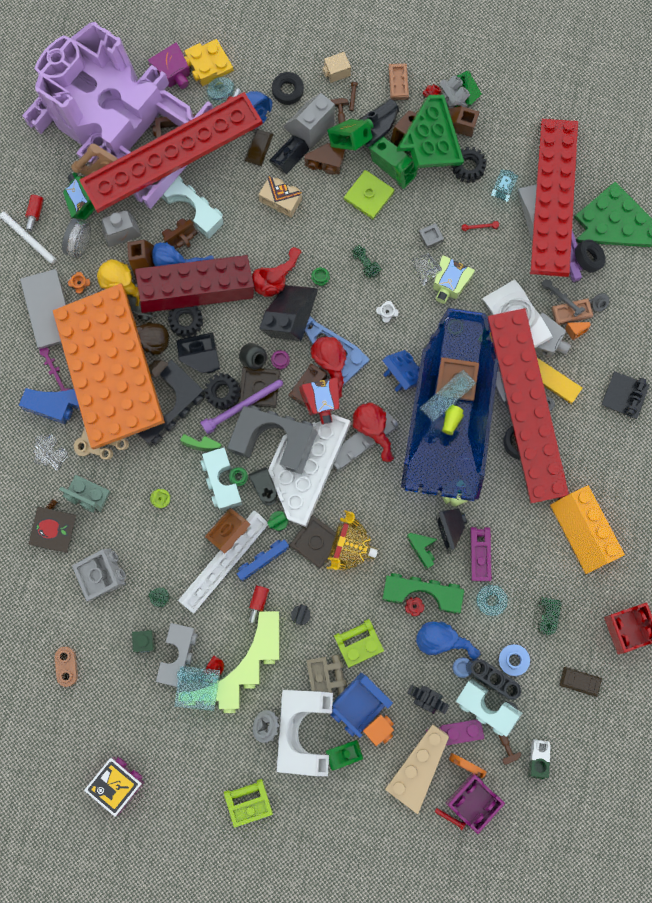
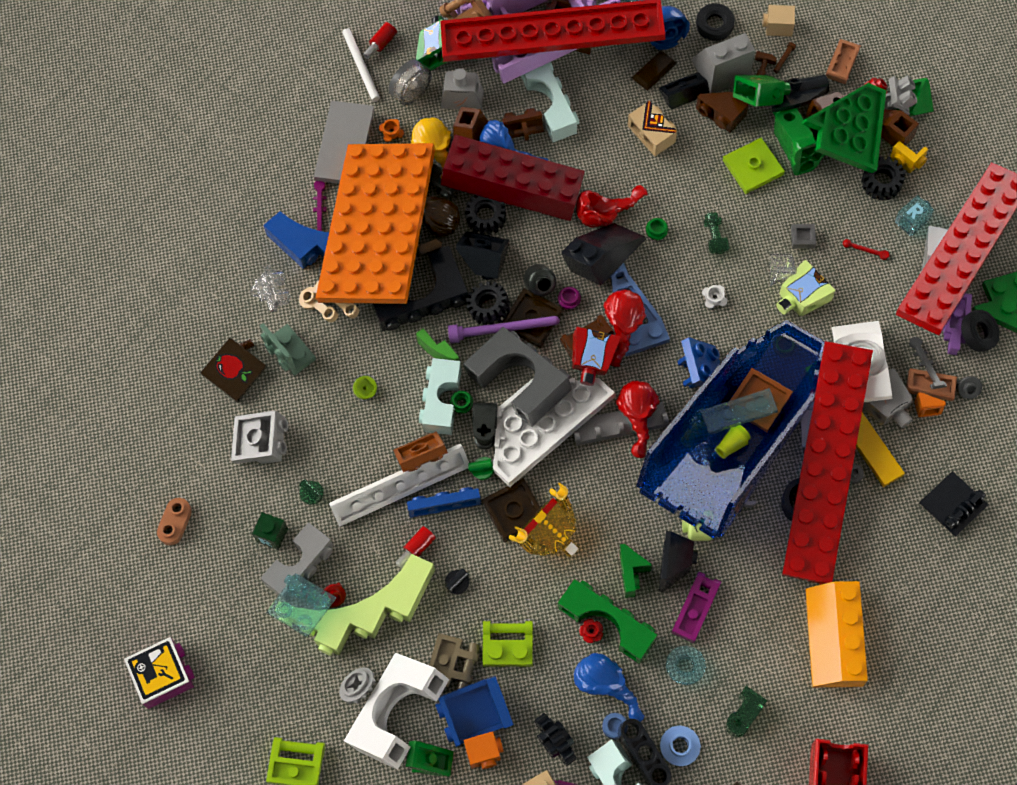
camera: 30 degrees right, 10 degrees down
(480, 141) = (907, 157): none -> yellow bracket

